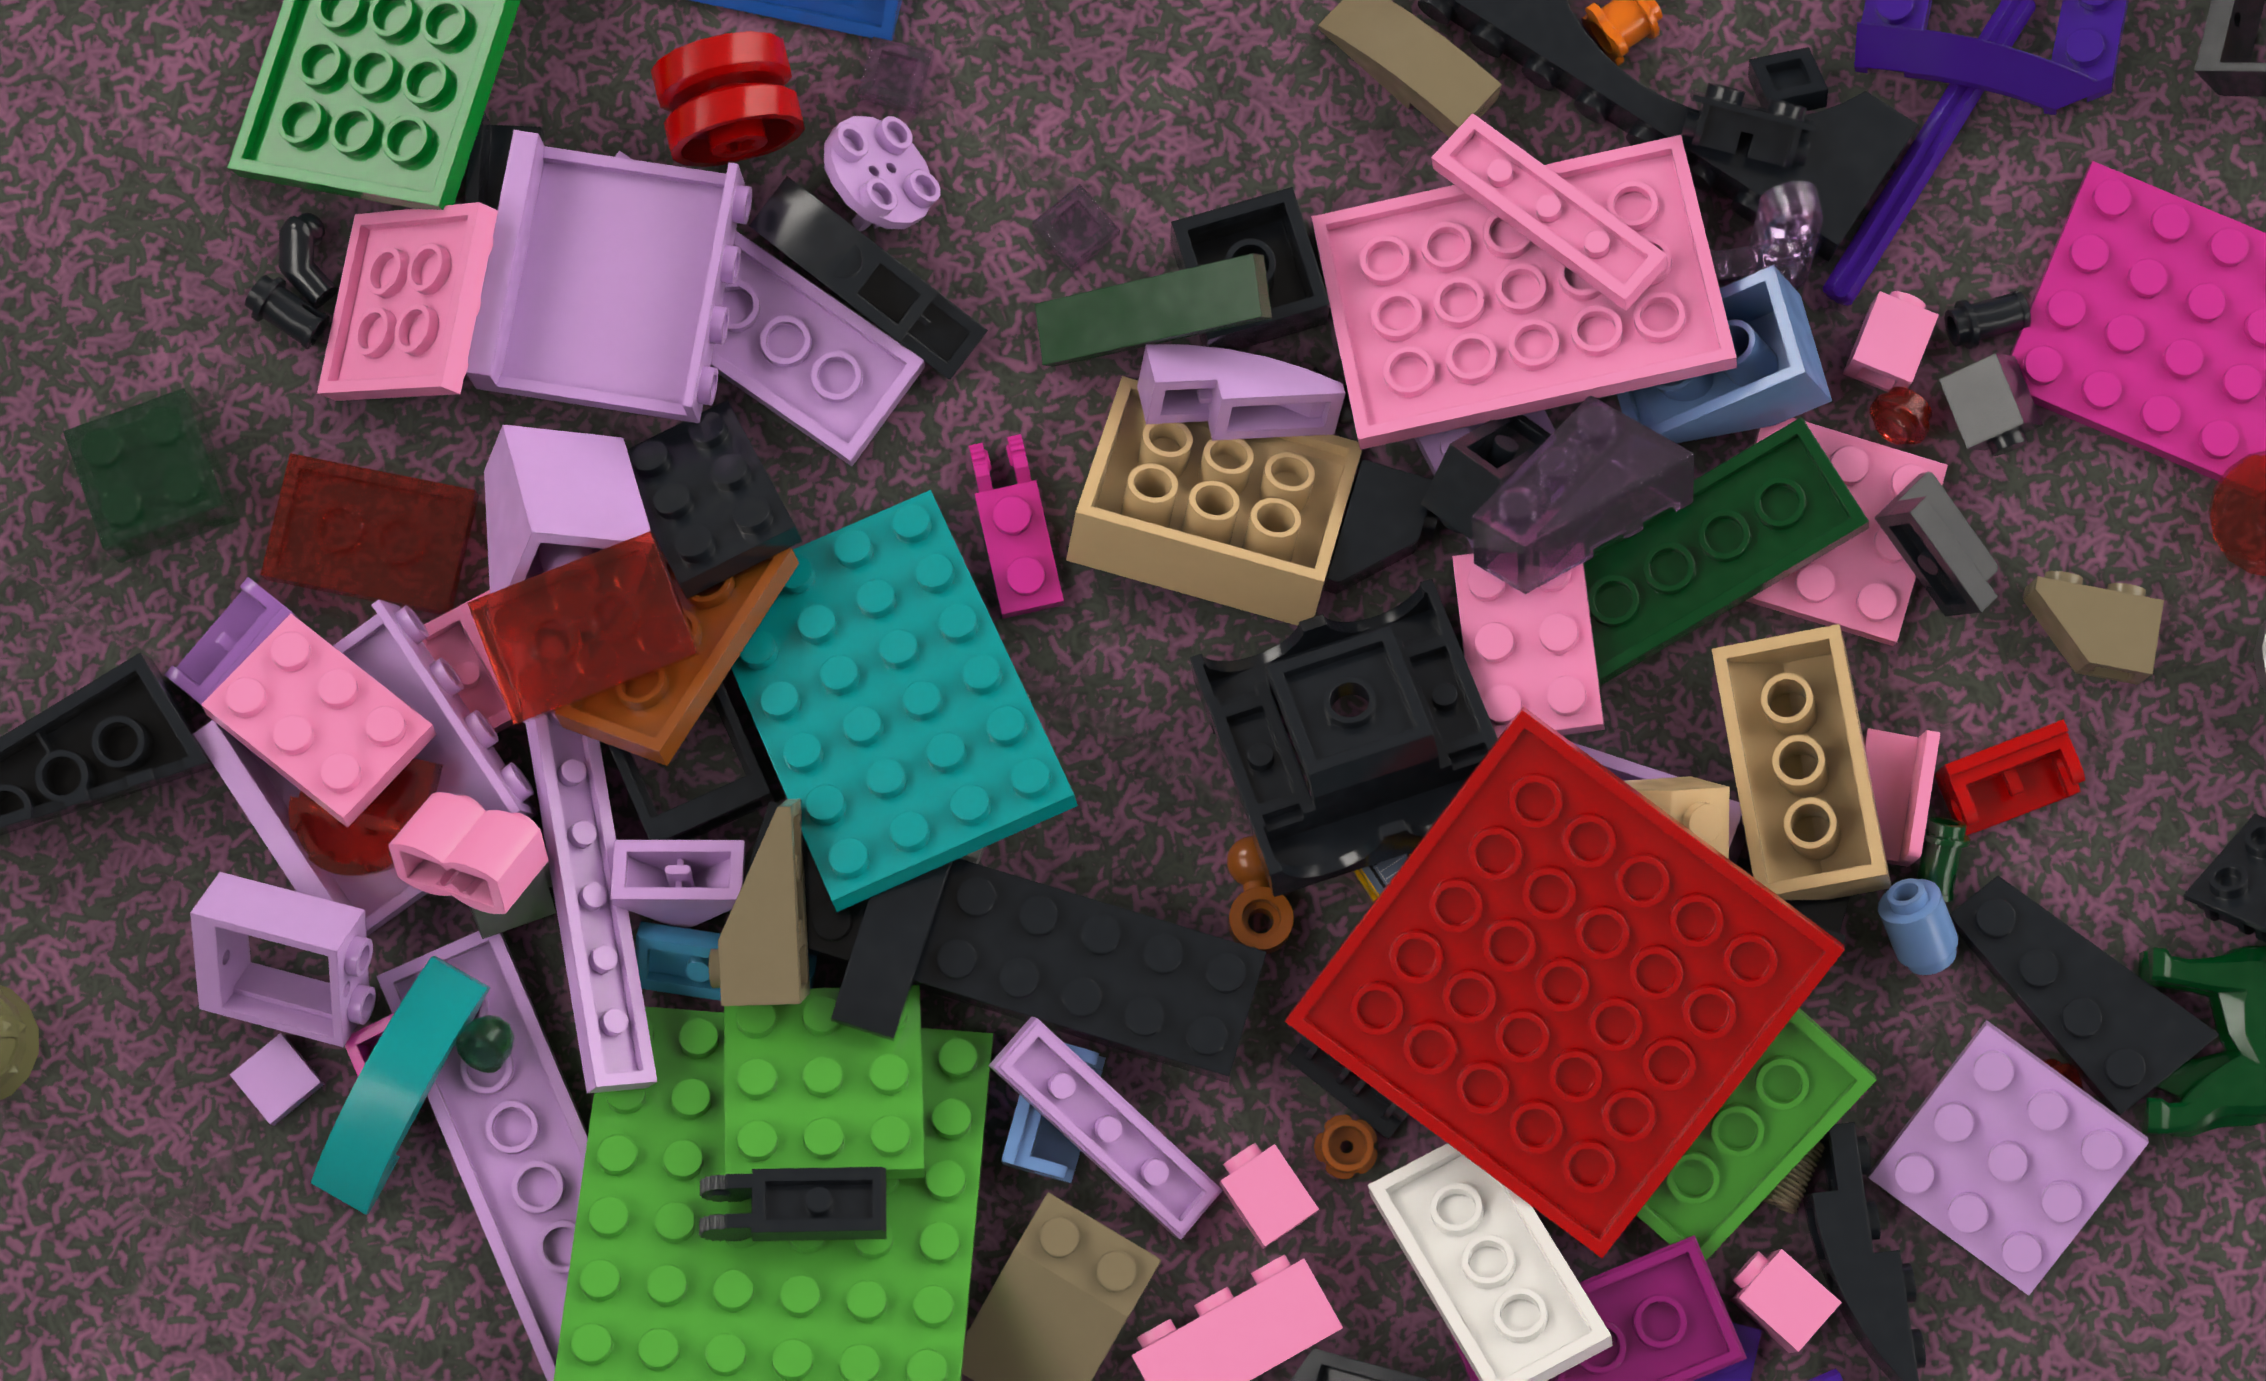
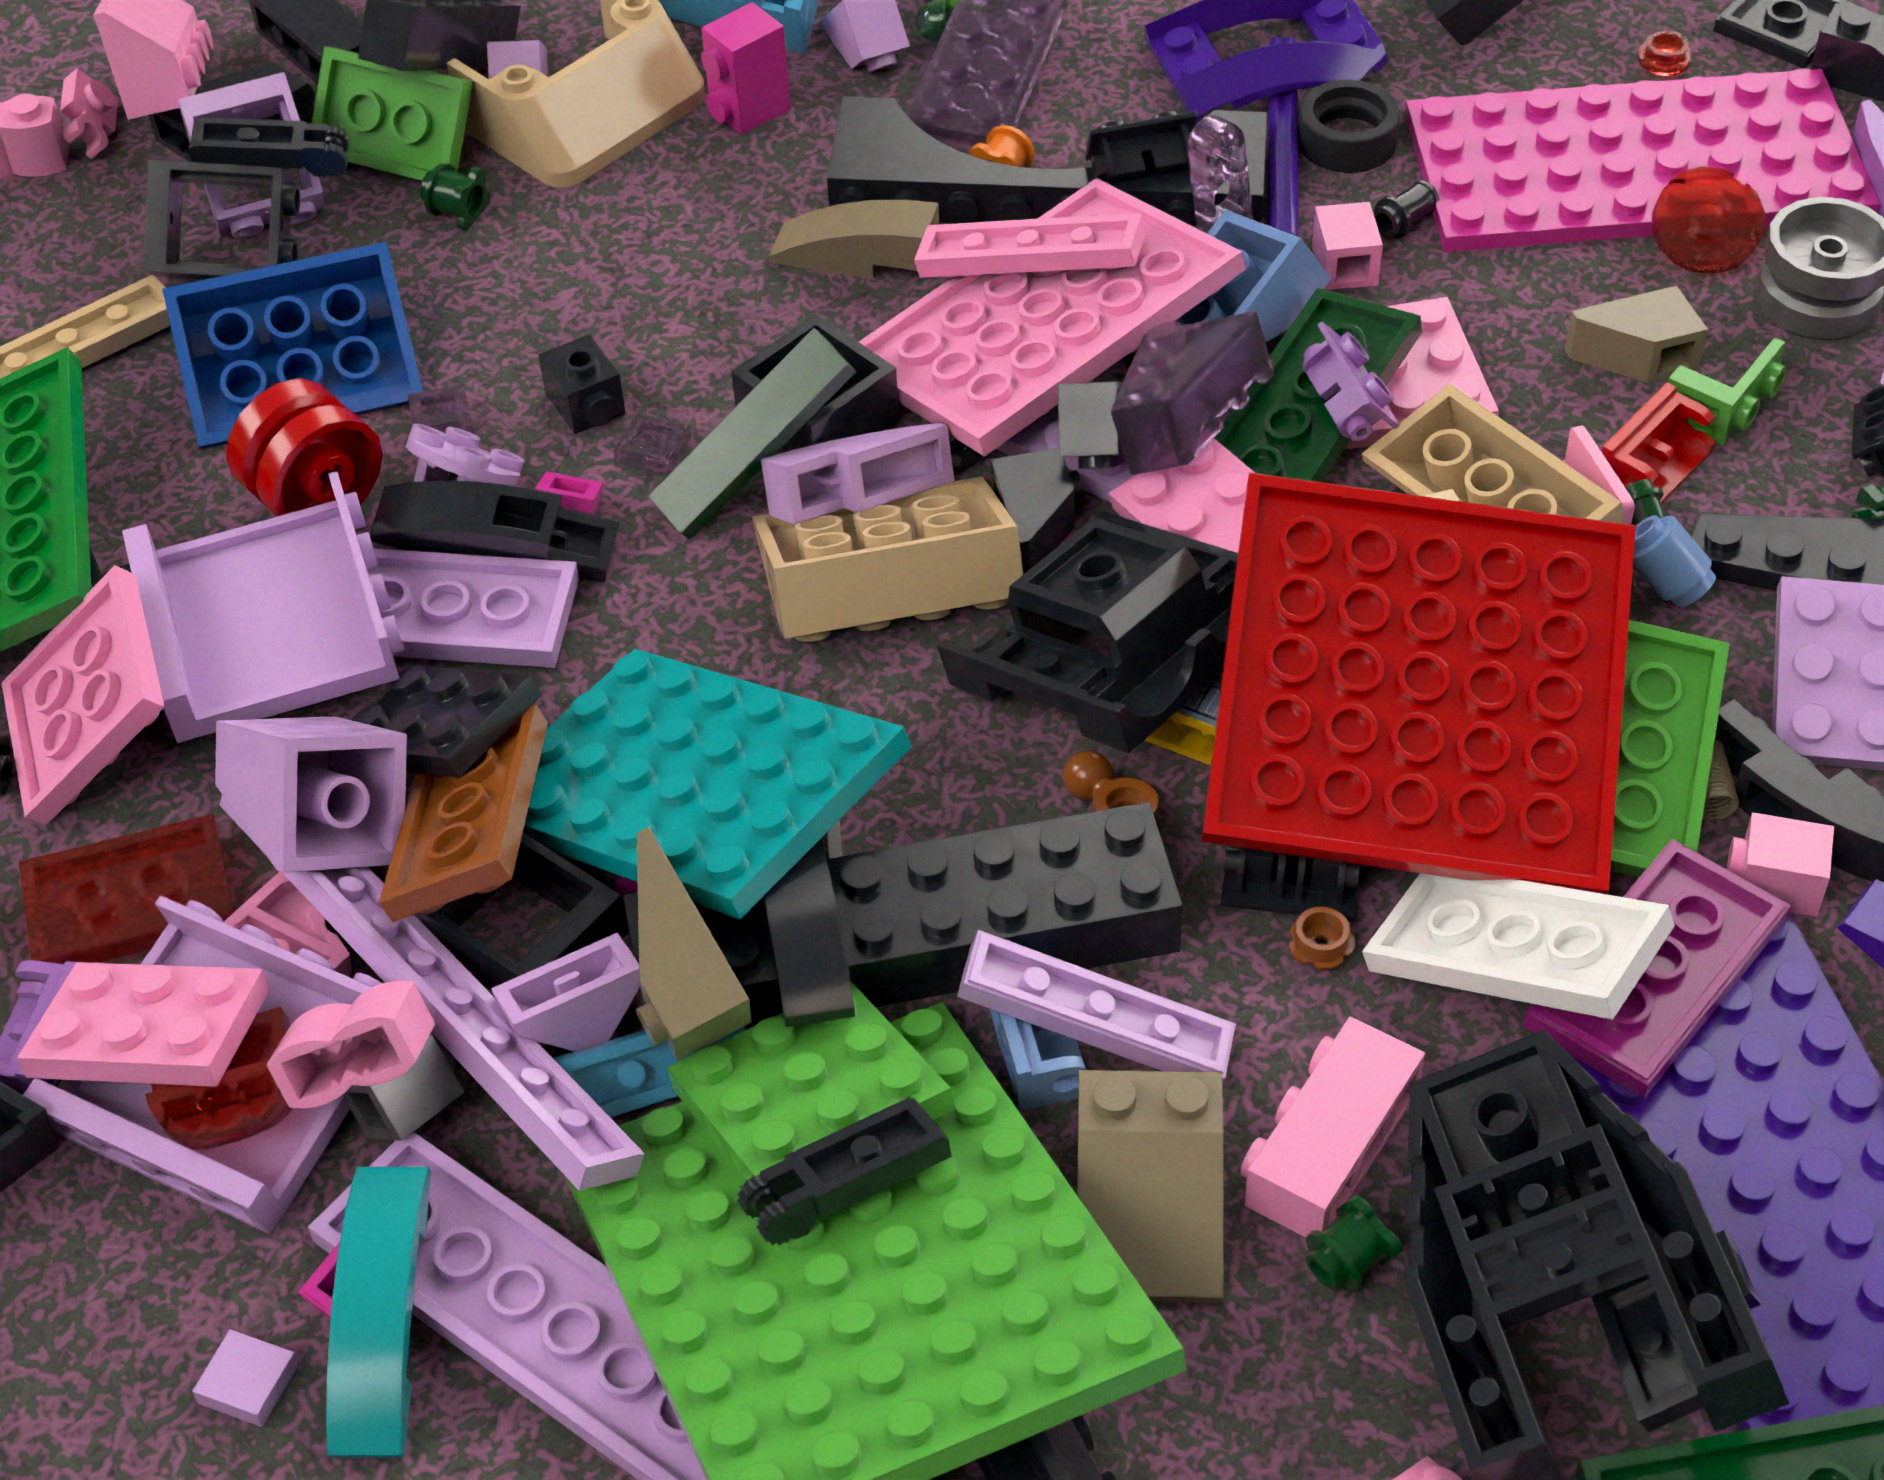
camera: 25 degrees left, 30 degrees down
(270, 996) = (133, 1261): lavender window -> none
(486, 1043) = (446, 1225): clear green hinge -> none
(583, 628) = (372, 814): clear red plate -> none
(958, 266) = (576, 492): none -> dark pink plate
(1016, 535) = (723, 640): dark pink hinge -> none
(1041, 124) = (582, 384): none -> black brick
(1266, 1193) = (1279, 1001): bright pink brick -> none
(1747, 545) = (1363, 395): none -> medium lavender hinge
(1901, 416) = (1389, 282): clear red plate -> none
(1940, 547) = (1486, 331): black panel -> none
(1991, 404) = (1450, 241): brick -> none
(2024, 123) = (1343, 150): none -> black tyre
(2098, 744) = (1734, 406): none -> bright green bracket

